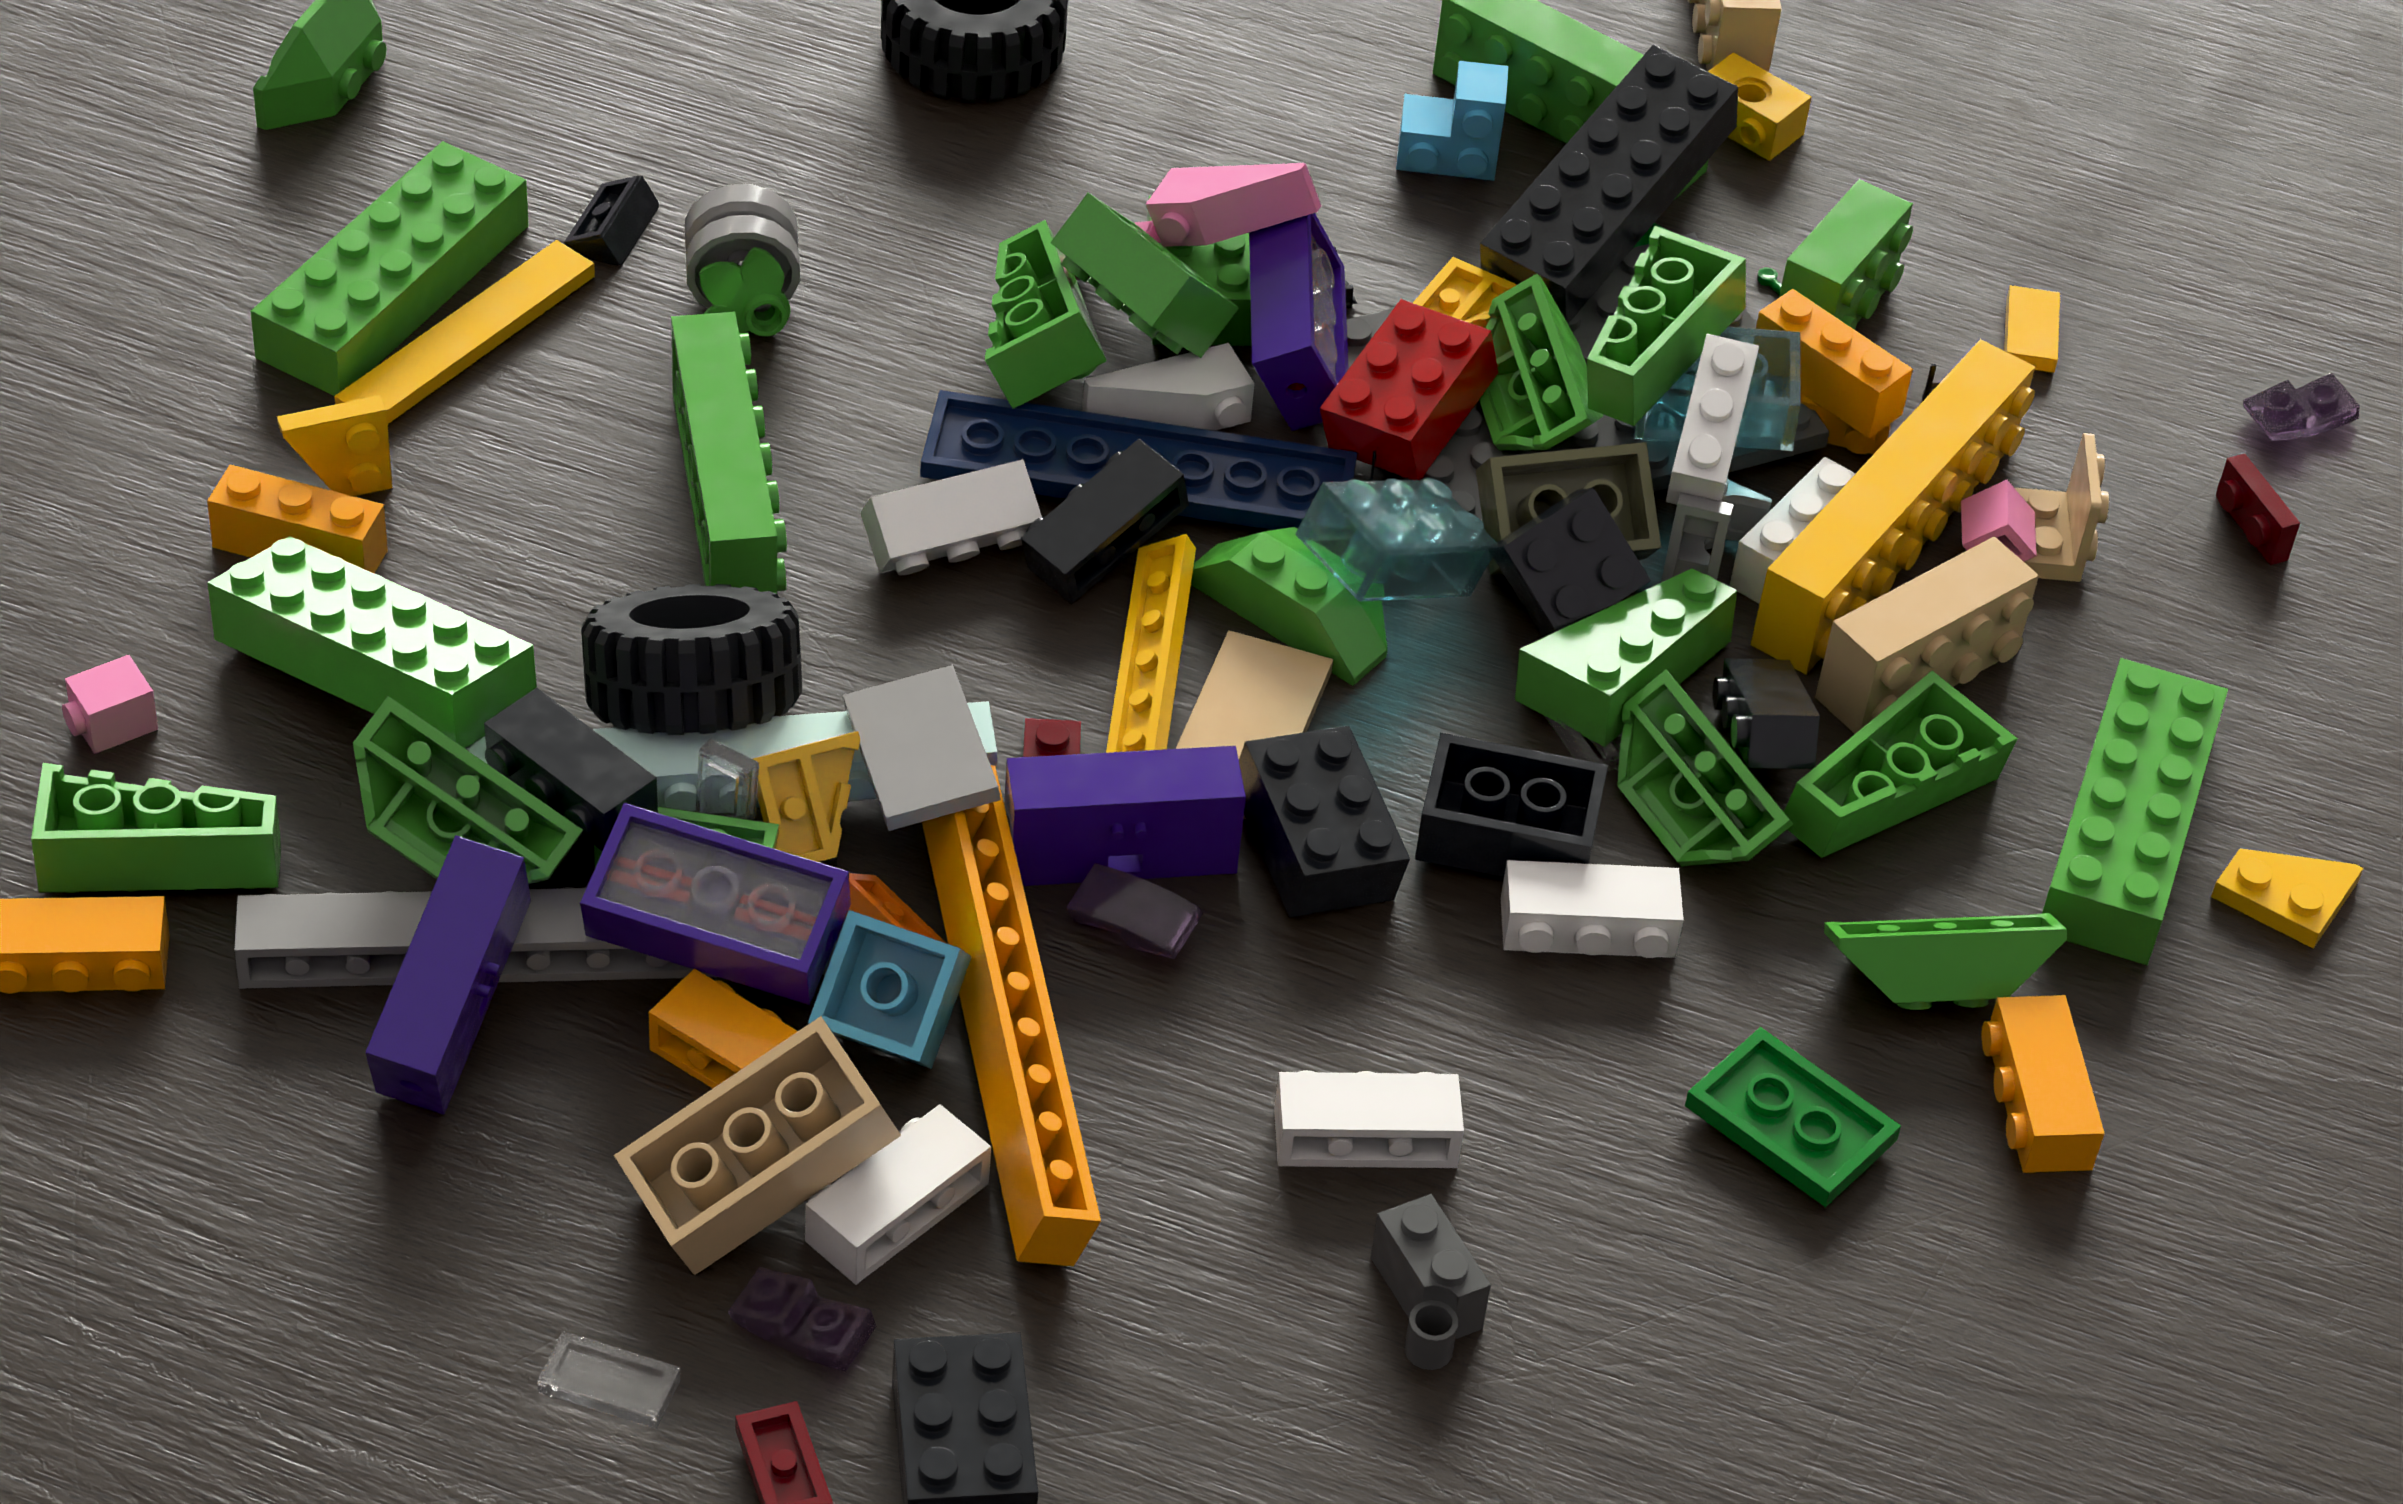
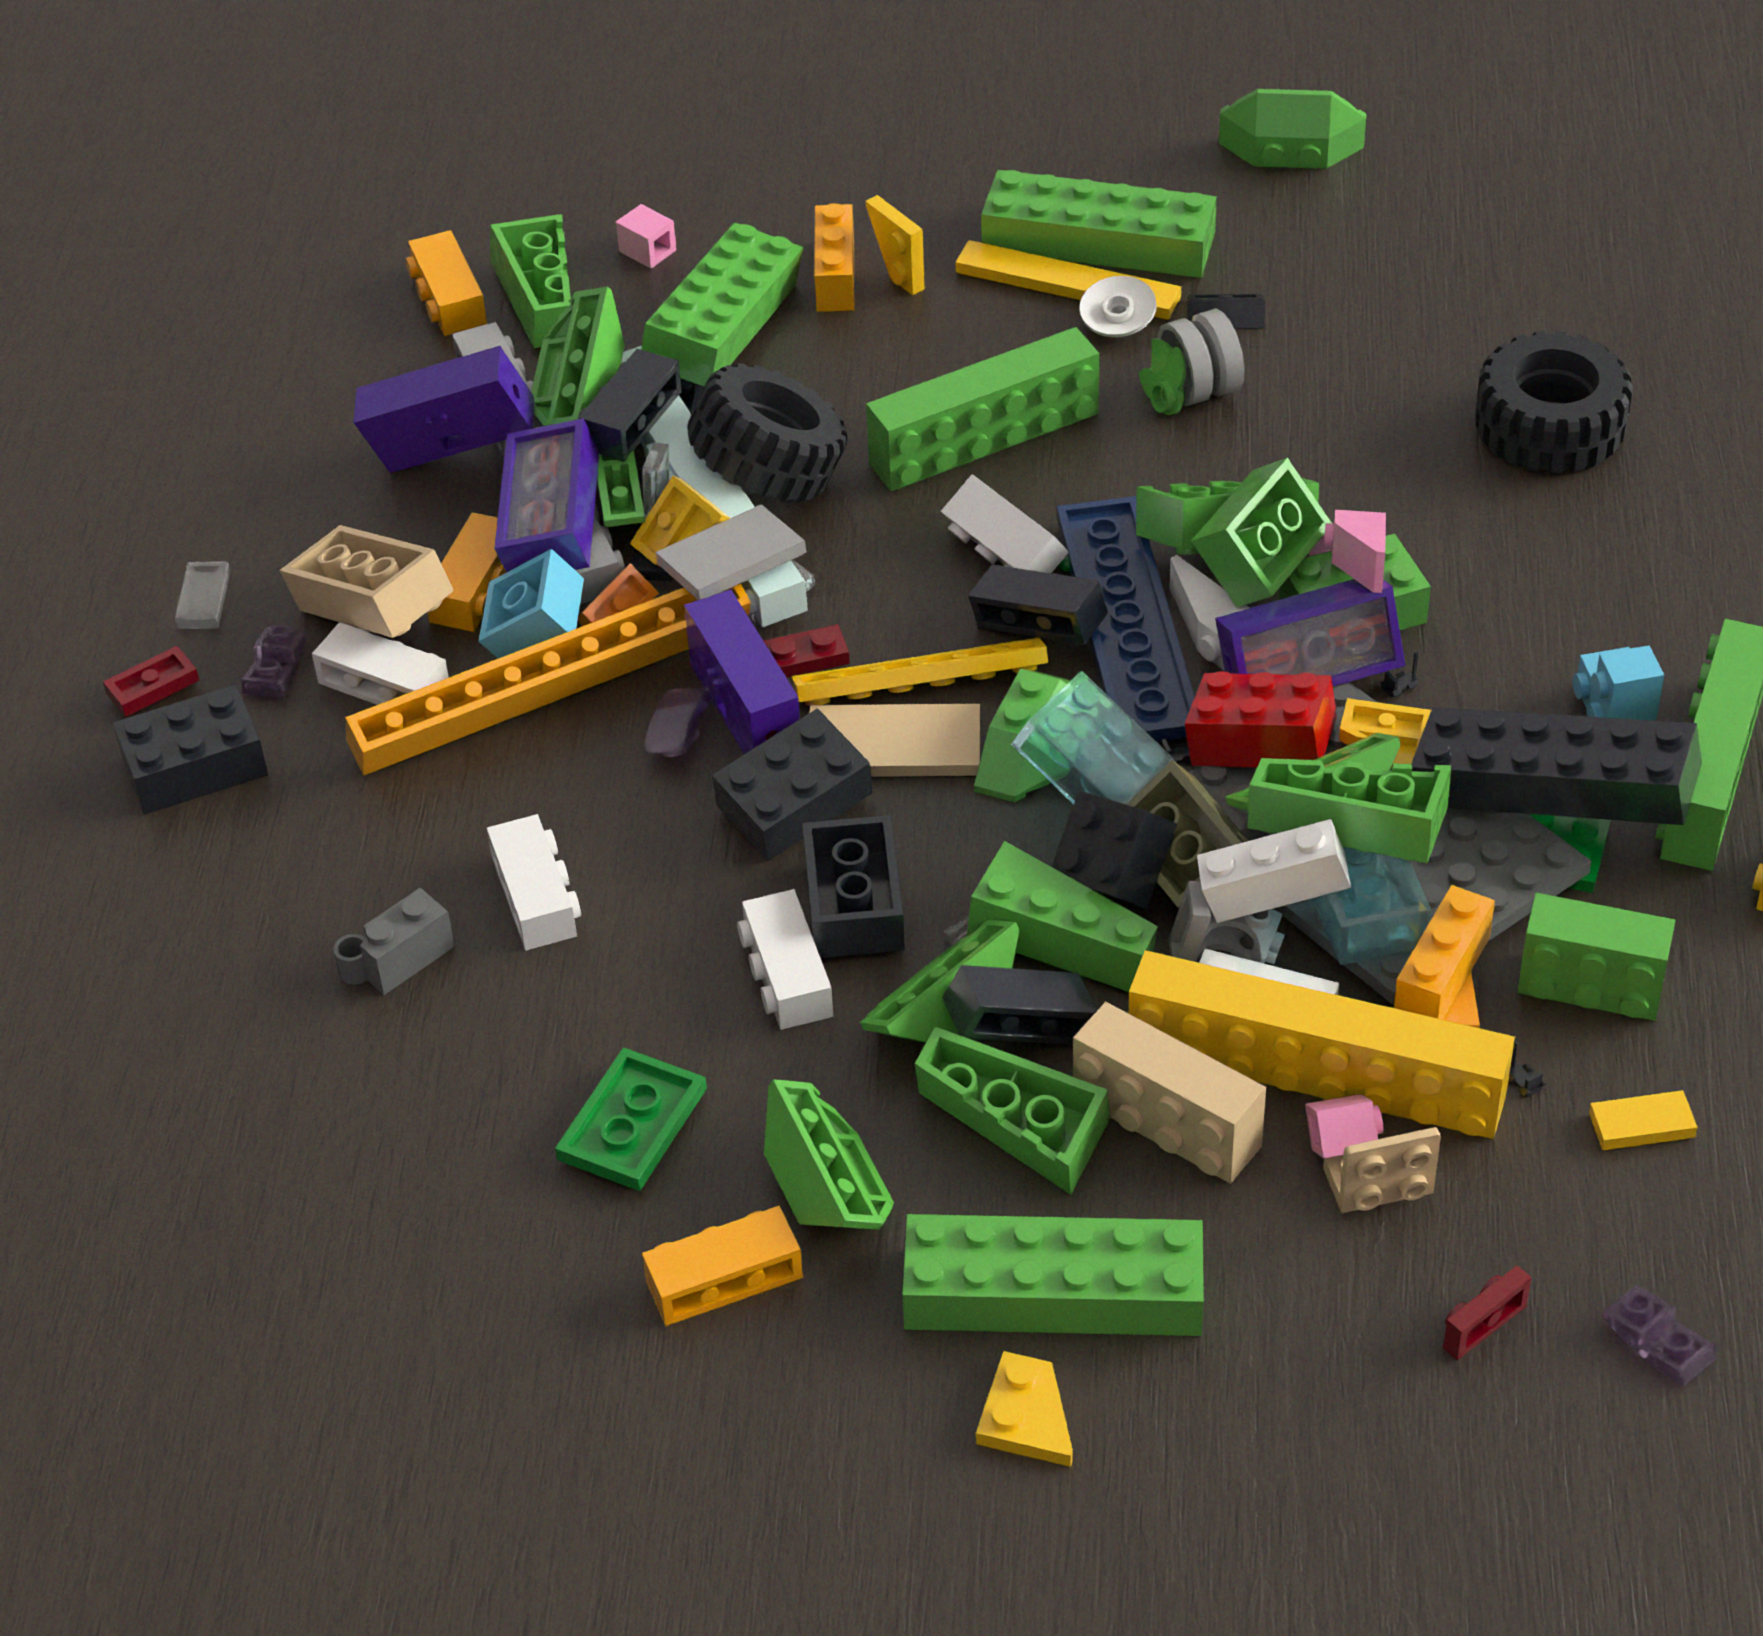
camera: 80 degrees right, 0 degrees up
(567, 285) = (1118, 306): none -> white dish

